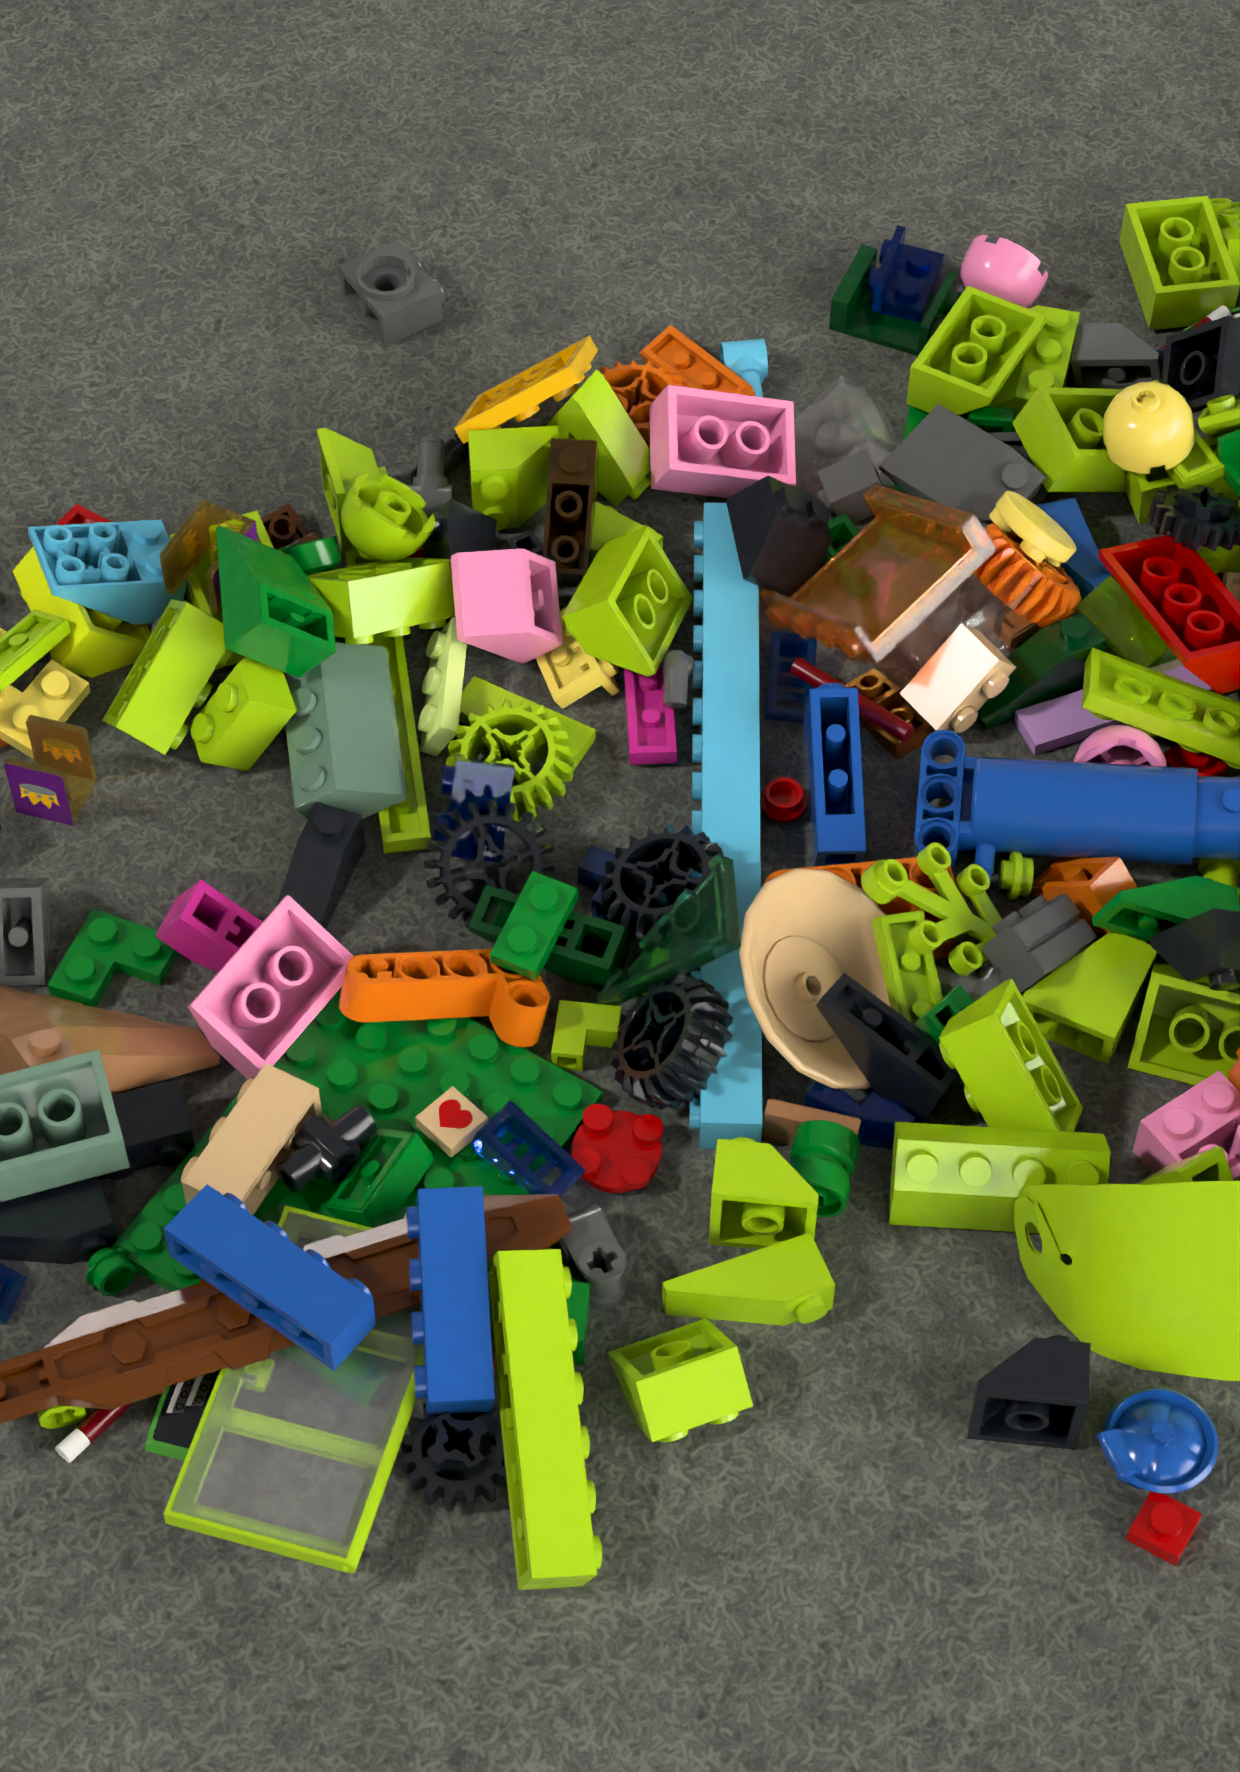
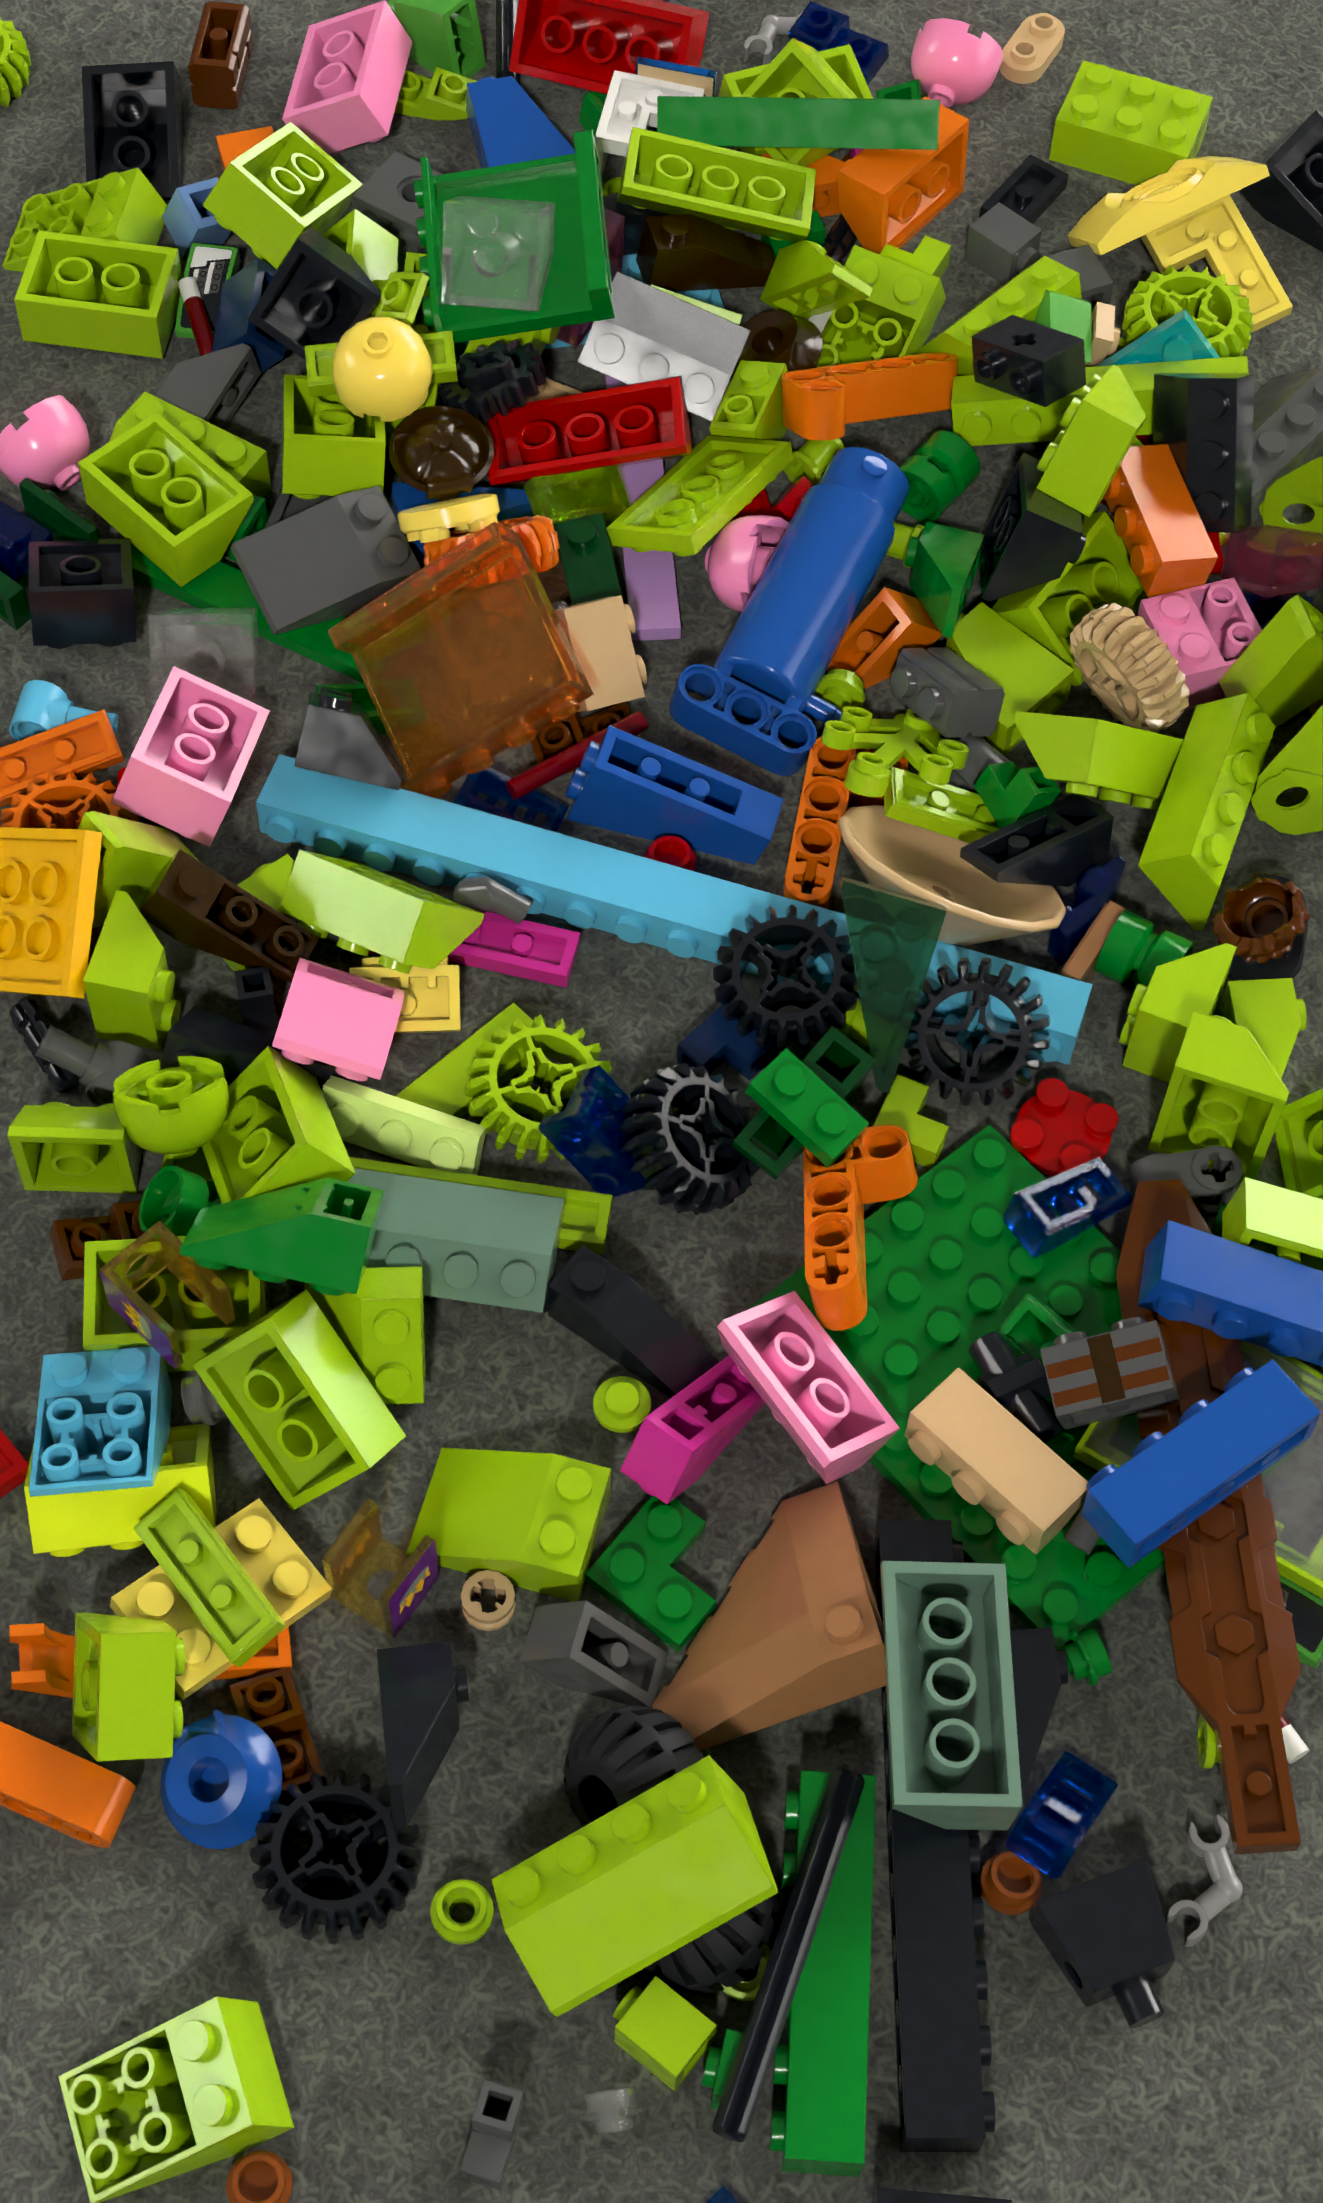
camera: 75 degrees left, 5 degrees up
(57, 869) = (503, 1591): none -> tan bush
(124, 856) = (516, 1516): none -> lime slope
(251, 894) = (621, 1404): none -> lime plate
(342, 1196) = (1109, 1373): none -> dark grey brick
(451, 1121) = (1005, 1264): tan tile -> none
(664, 1224) = (1221, 1094): none -> lime slope
(846, 483) = (284, 668): dark grey brick -> none
(867, 340) = (81, 592): none -> black slope
(887, 1254) = (1267, 925): none -> reddish brown hair
(1105, 508) = (441, 451): none -> dark brown piece
(1124, 1072) = (1129, 668): none -> tan gear

